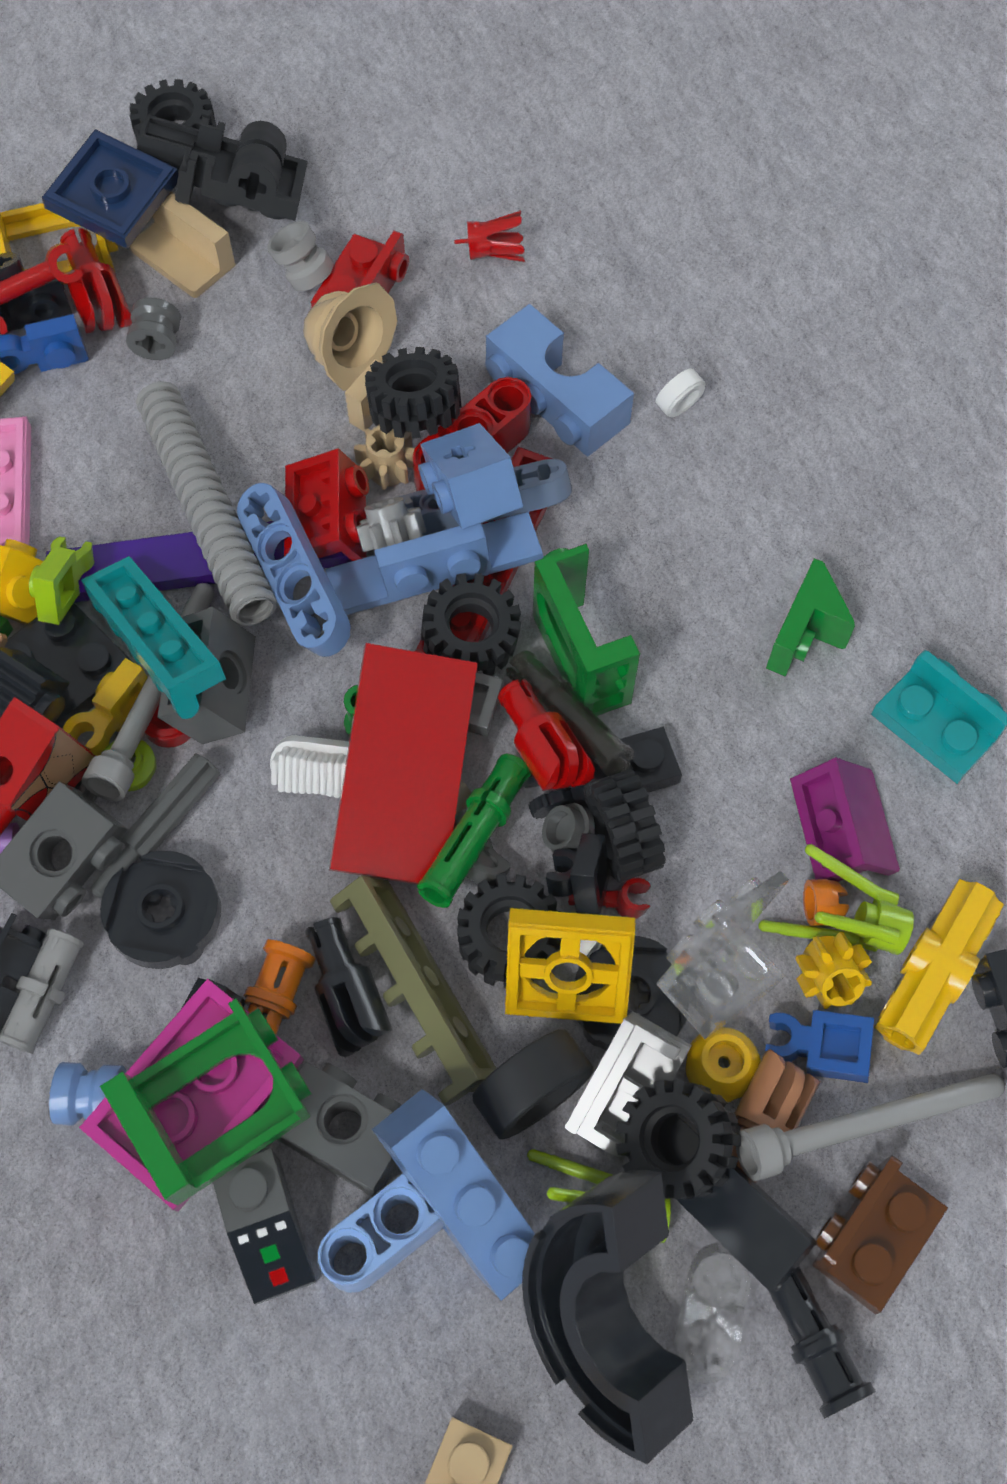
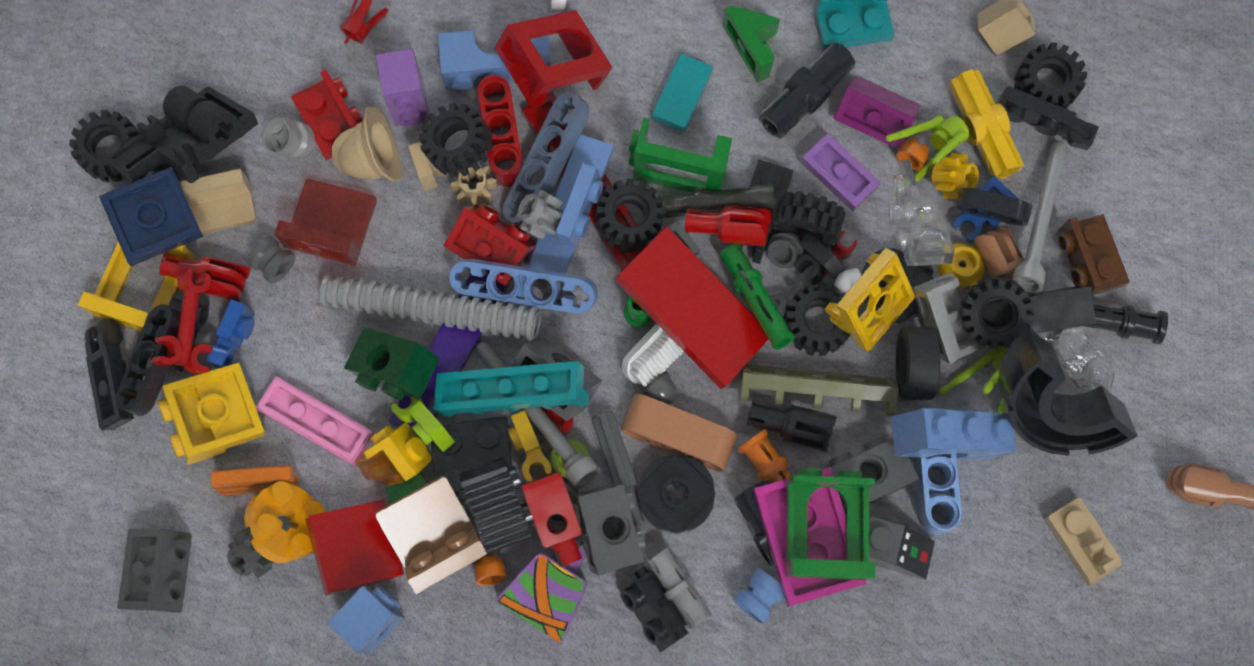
camera: 55 degrees left, 10 degrees up
(104, 504) = (391, 363): none -> dark green brick
(236, 354) = (328, 222): none -> clear red bracket
(241, 862) = (678, 432): none -> nougat beam
(282, 808) = (662, 390): none -> dark grey hinge
(440, 306) = (403, 87): none -> medium lavender brick
(469, 476) = (547, 147): medium blue brick -> none
(552, 421) = (529, 69): none -> red panel
(679, 594) = (682, 93): none -> teal tile
(724, 830) = (840, 172): none -> medium lavender plate
(799, 722) = (807, 90): none -> black piece
(826, 1042) = (994, 206): none -> black beam

